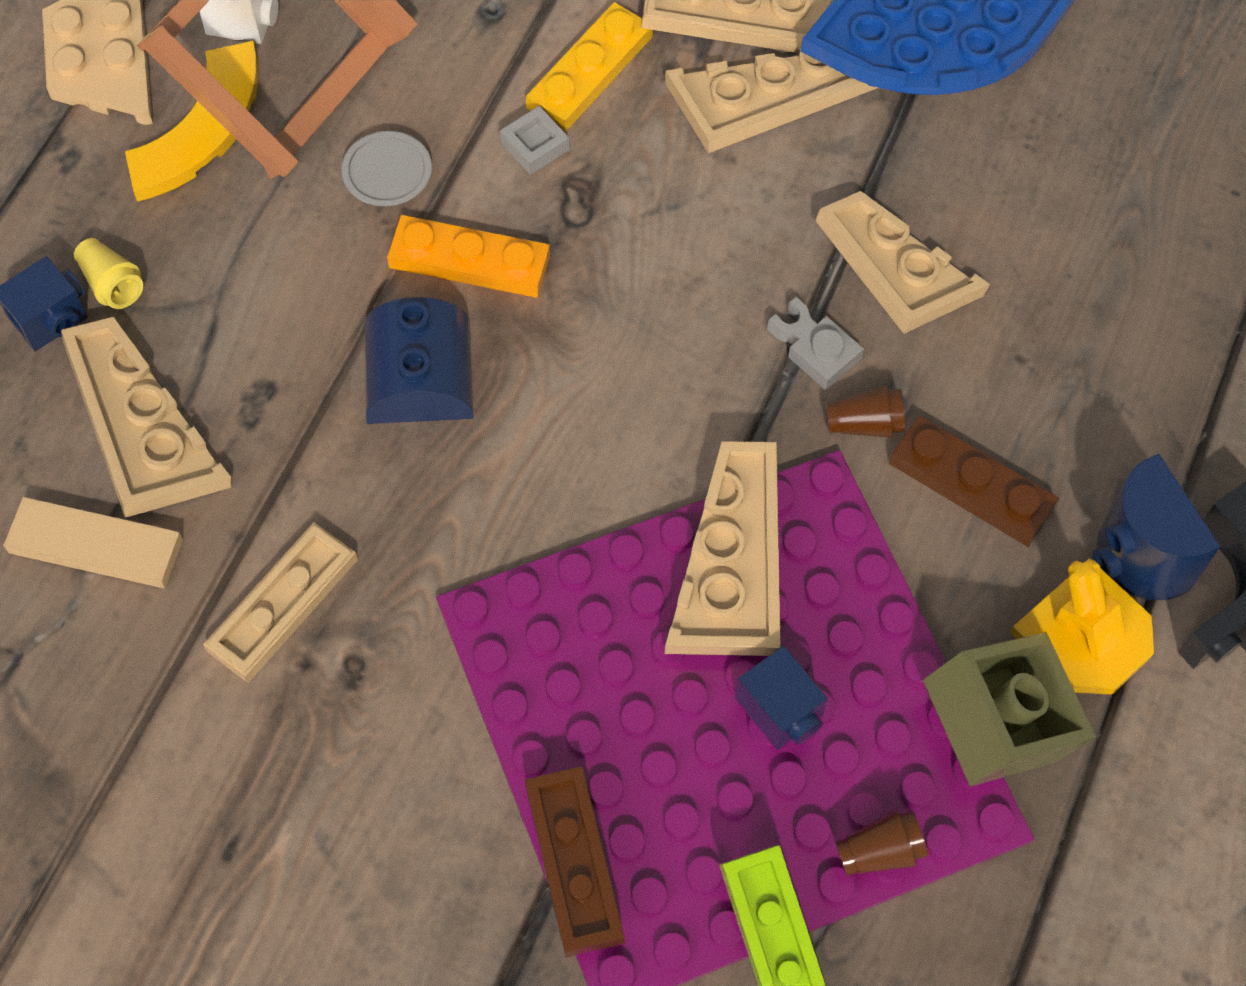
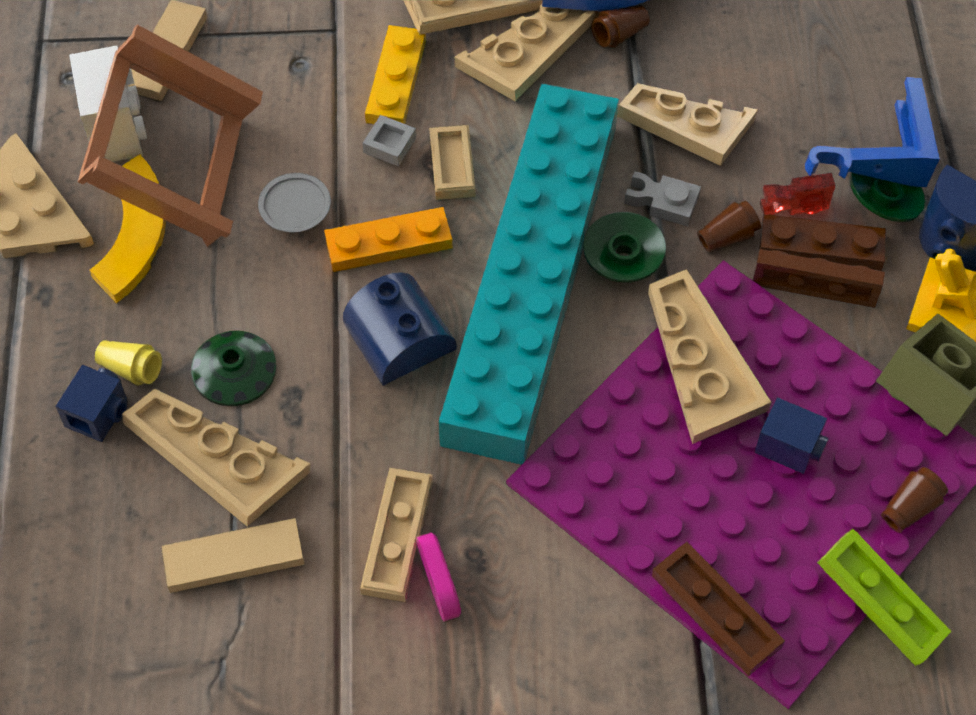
camera: 25 degrees left, 5 degrees down
(220, 348) = (235, 382): none -> dark green dish
(291, 672) = (438, 576): none -> dark pink tile
(594, 196) = (452, 162): none -> tan tile
(599, 366) = (529, 276): none -> teal brick
(732, 364) = (627, 234): none -> dark green dish
(884, 110) = (618, 25): none -> reddish brown cone
(937, 521) = (818, 278): none -> reddish brown plate
(979, 412) = (803, 195): none -> clear red plate
(1086, 451) = (888, 198): none -> dark green dish
(1109, 423) = (904, 165): none -> blue hinge

